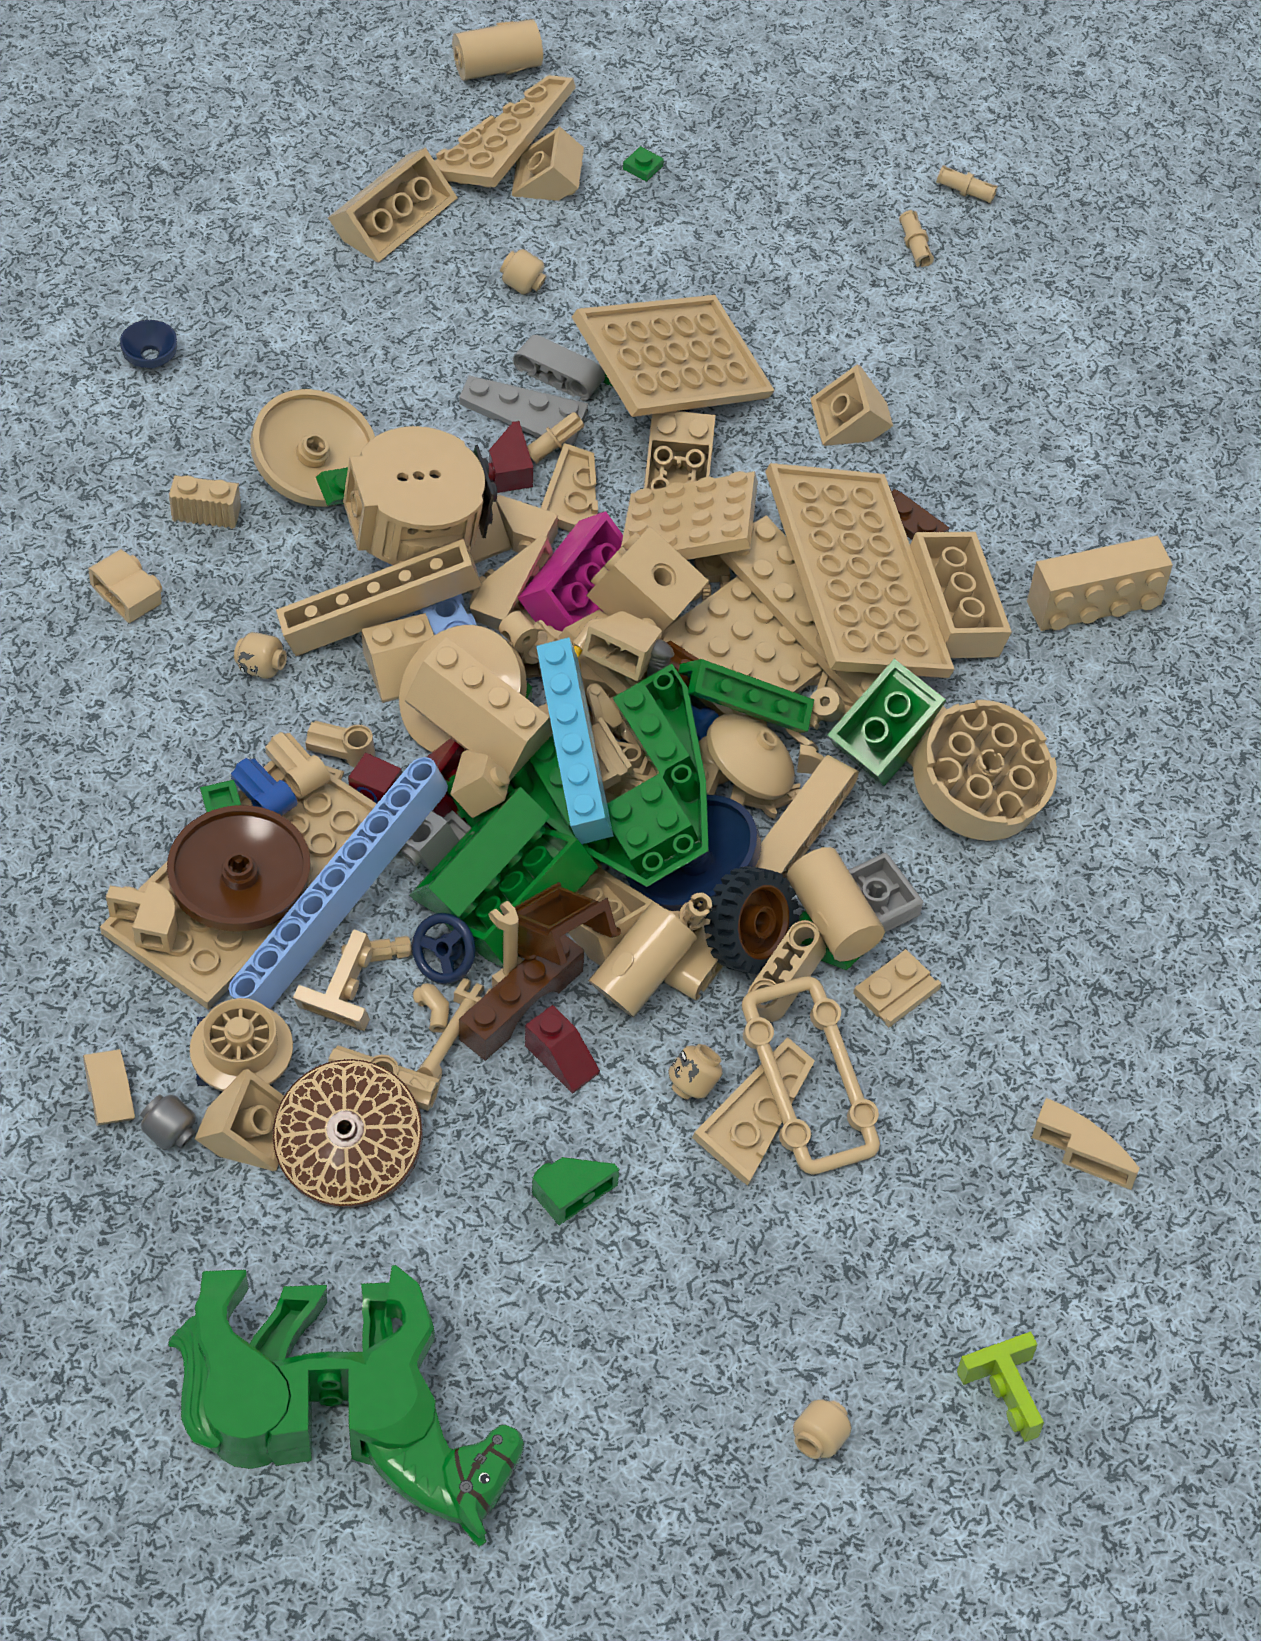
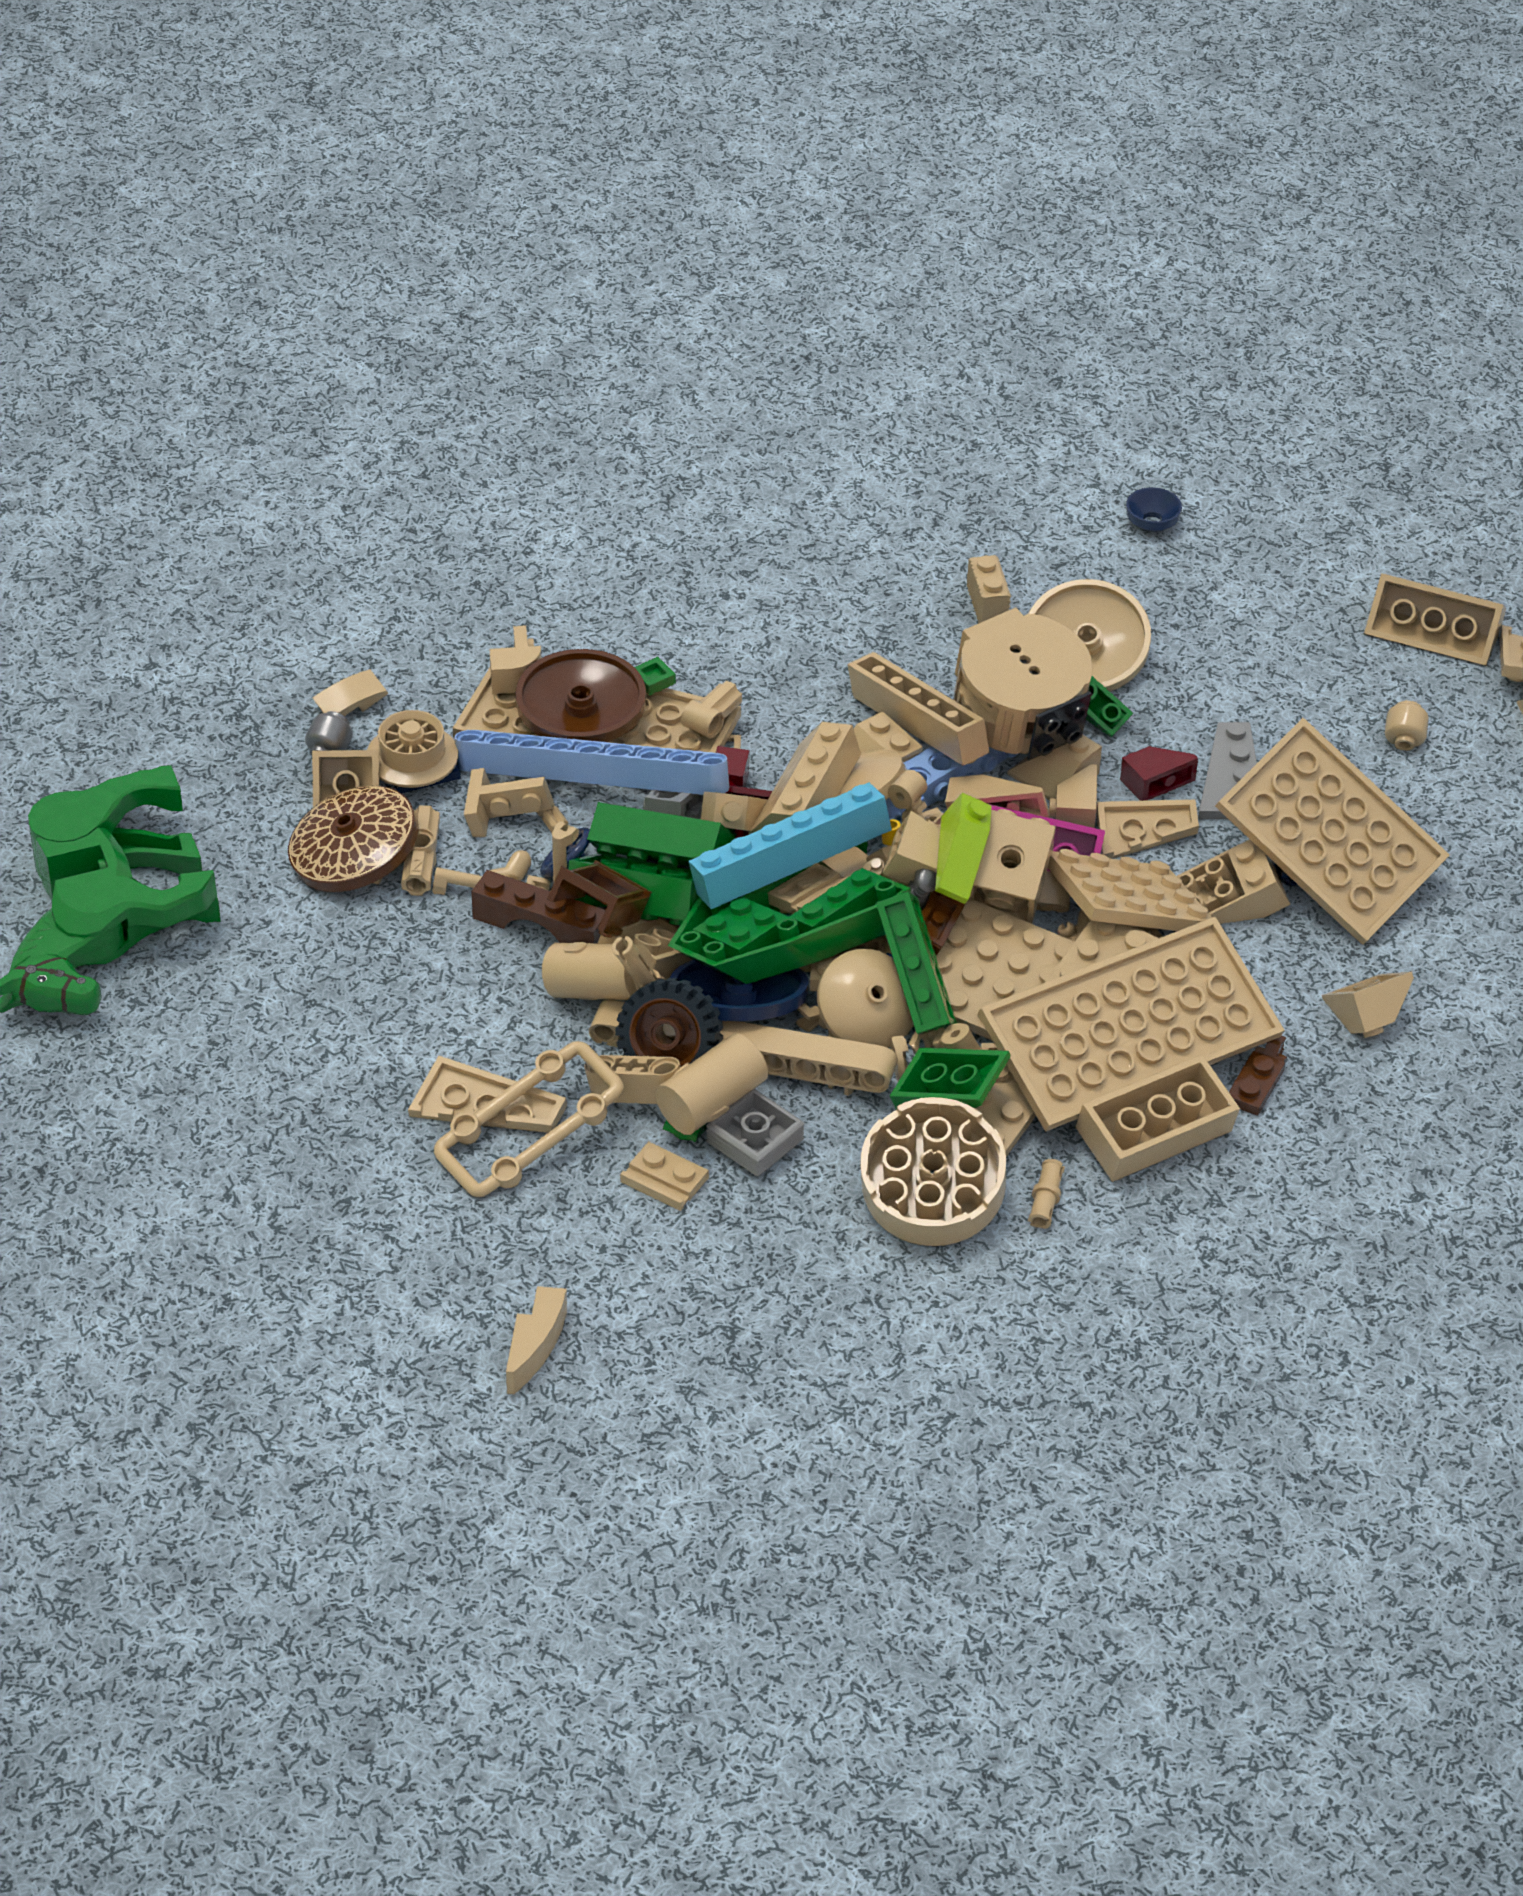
camera: 75 degrees right, 10 degrees down
(125, 585) = (869, 570): tan brick -> none
(260, 655) = (831, 665): tan head -> none
(262, 787) = (671, 701): blue piece -> none
(340, 742) = (763, 743): tan piece -> none
(555, 437) = (1197, 790): tan axle -> none
(560, 1049) = (495, 953): dark red slope -> none
(572, 1185) = (354, 991): green slope -> none
(639, 600) = (961, 846): none -> lime slope
(695, 1071) = (502, 1042): tan head -> none
(821, 1429) = (168, 1202): tan head -> none
(987, 692) = (1046, 1193): none -> tan pin
(1006, 1382) = (269, 1316): lime bracket -> none
(1099, 583) = (1233, 1226): tan brick -> none

